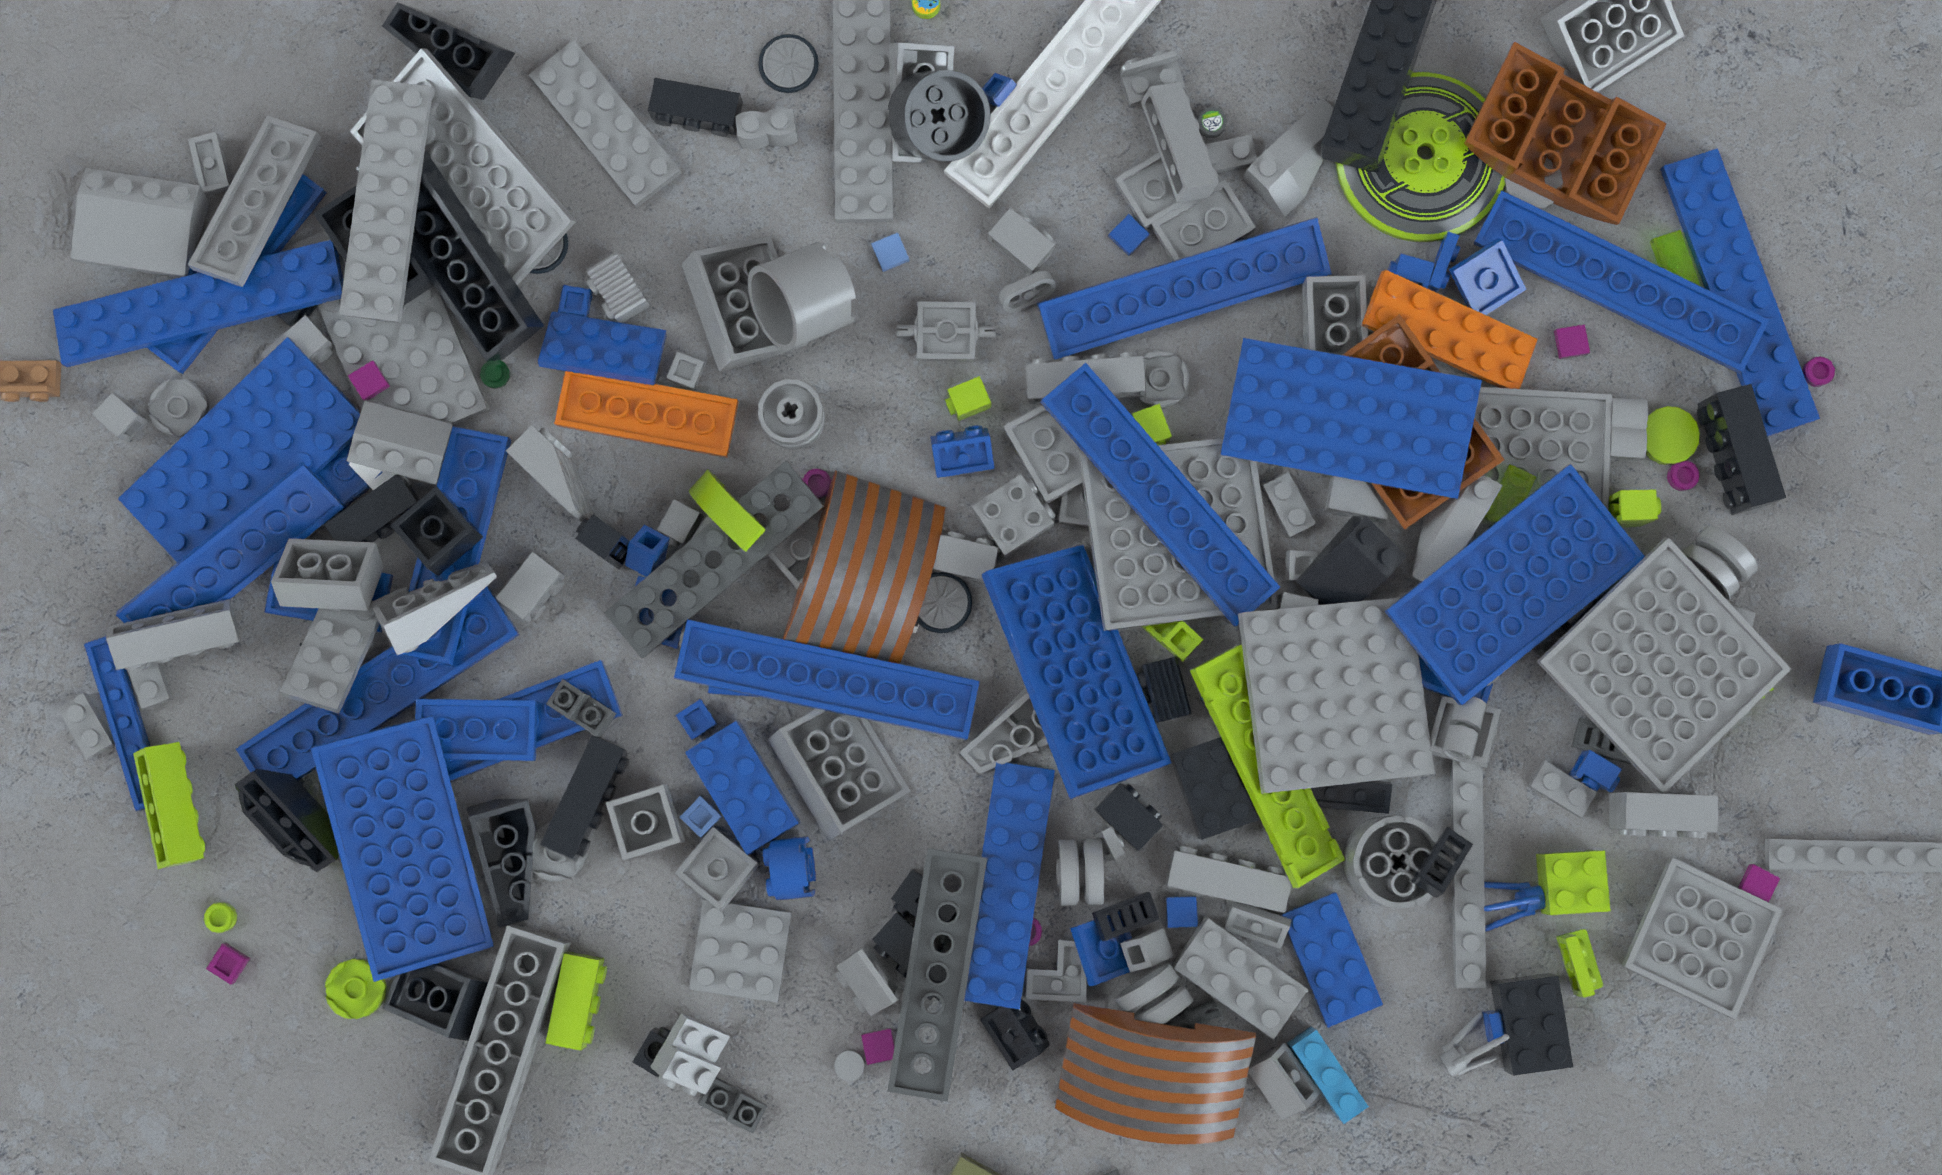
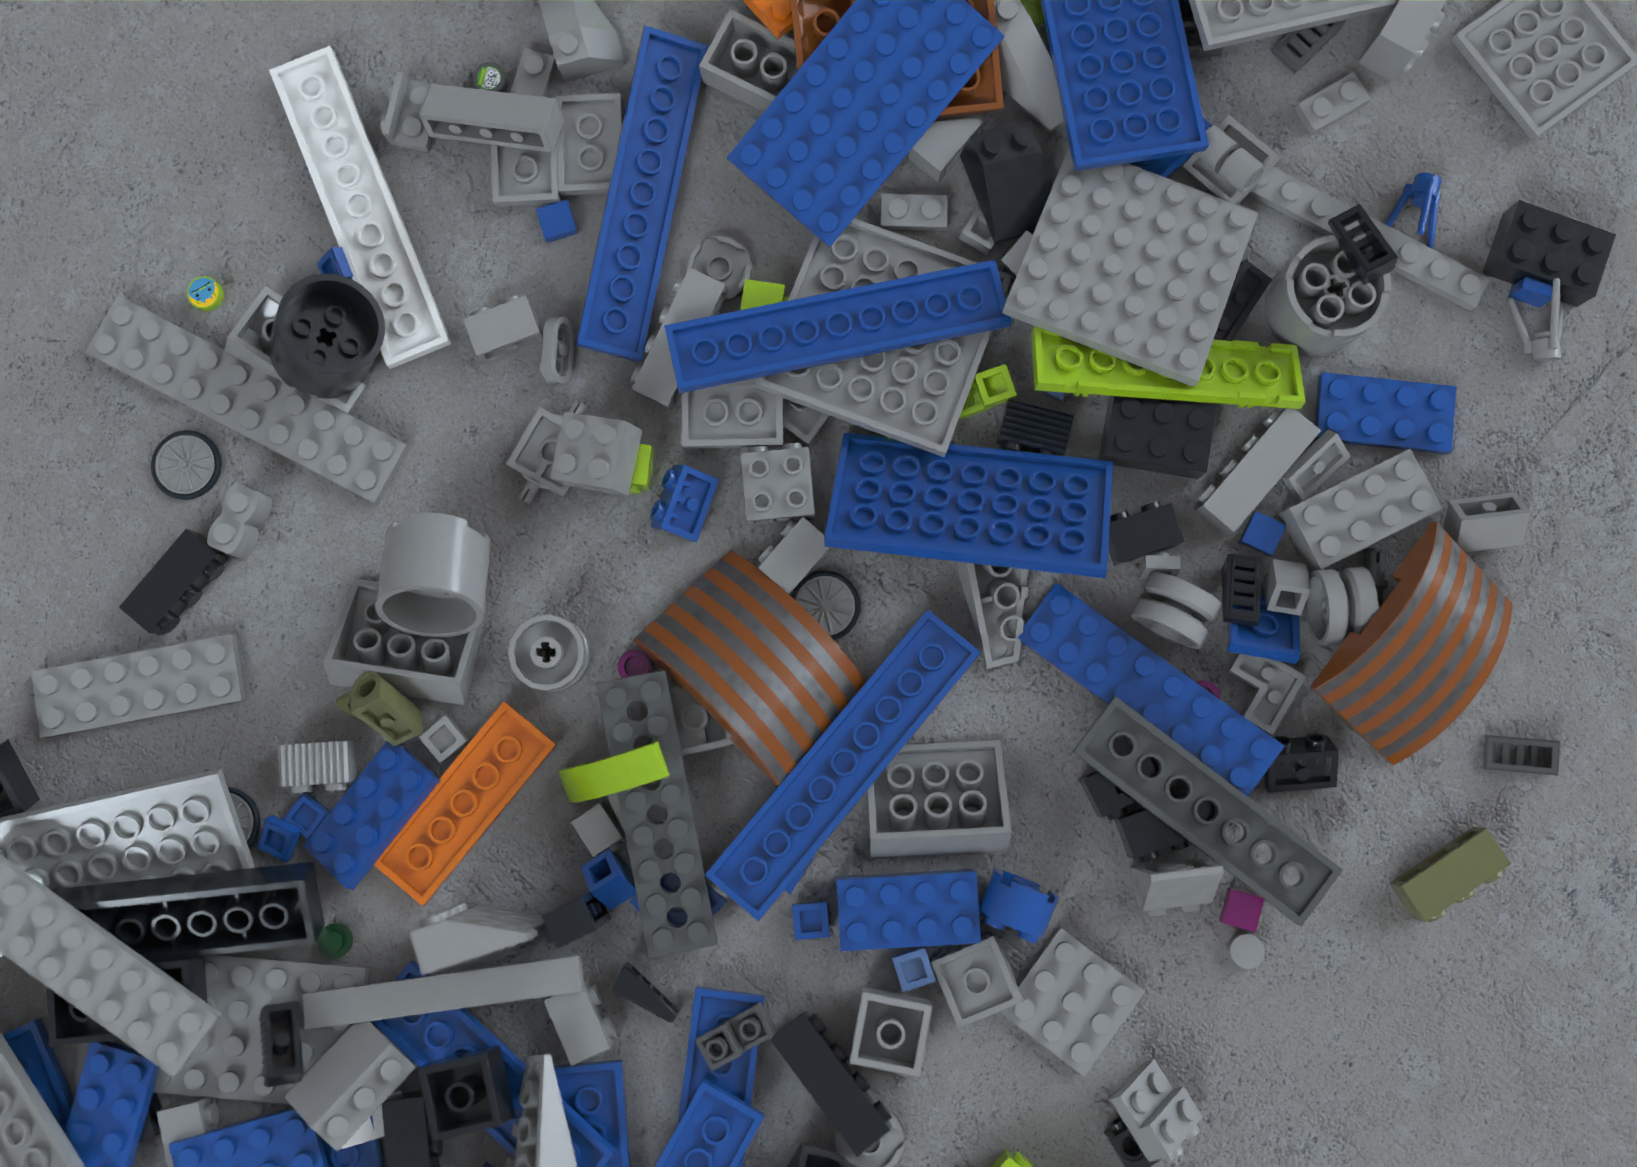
camera: 60 degrees left, 0 degrees up
(369, 380) = (255, 1084): magenta tile -> none
(401, 377) = (281, 1044): none -> black brick
(500, 474) = (443, 992): none -> light grey tile
(547, 290) = (279, 838): none -> blue tile
(576, 620) = (638, 990): none -> black slope
(683, 313) = (382, 708): none -> olive piece
(733, 1104) = (1226, 1091): dark grey slope -> none
(890, 252) = (439, 466): medium blue tile -> none
(960, 365) = (596, 453): none -> light grey brick
(1327, 1074) = (1500, 476): dark azure brick -> none
(1573, 882) = (1431, 138): lime brick -> none
(1580, 963) = (1513, 177): lime bracket -> none
(1596, 771) = (1333, 61): blue brick -> none

